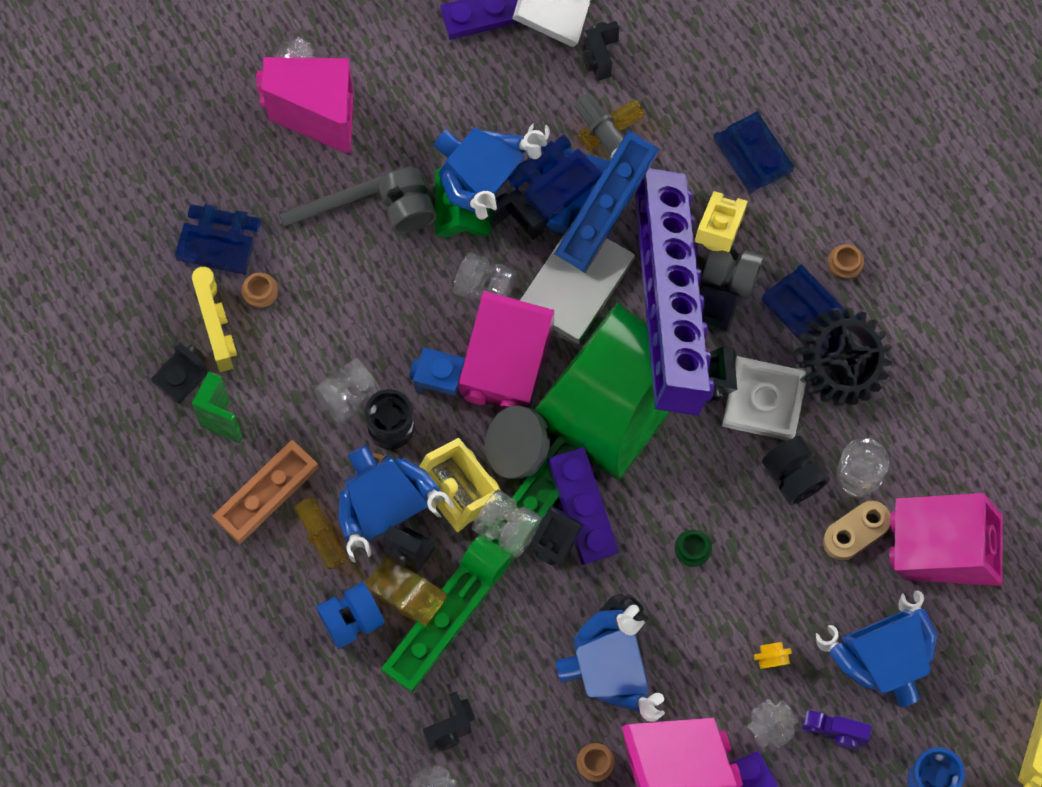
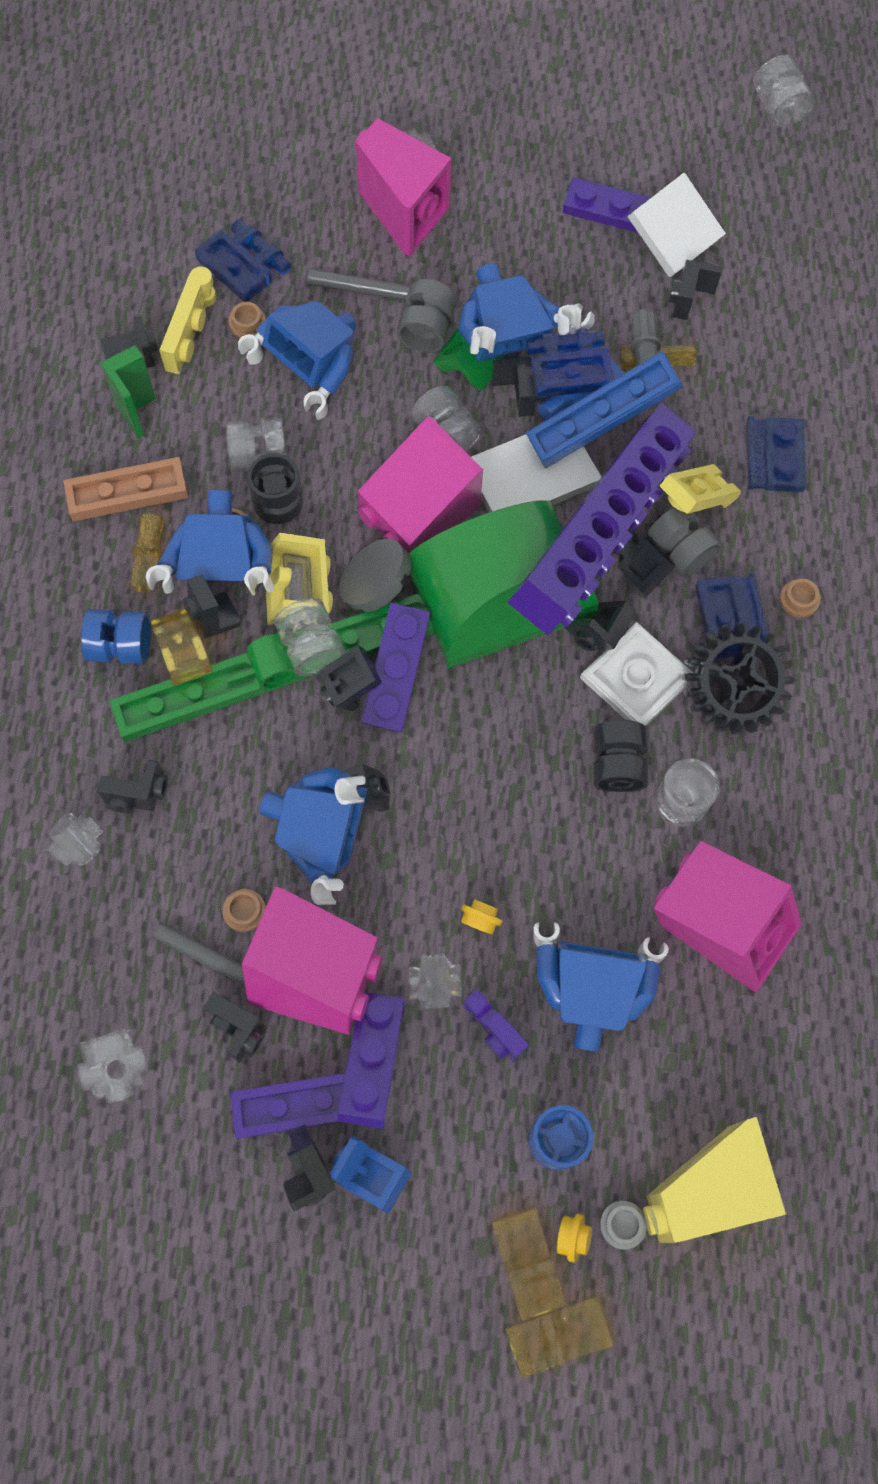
camera: 30 degrees right, 0 degrees up
(331, 281) = (310, 344): none -> blue torso
(437, 372) = (345, 472): blue bracket -> none
(693, 548) = (475, 770): dark green plate -> none
(858, 529) = (646, 850): tan plate -> none

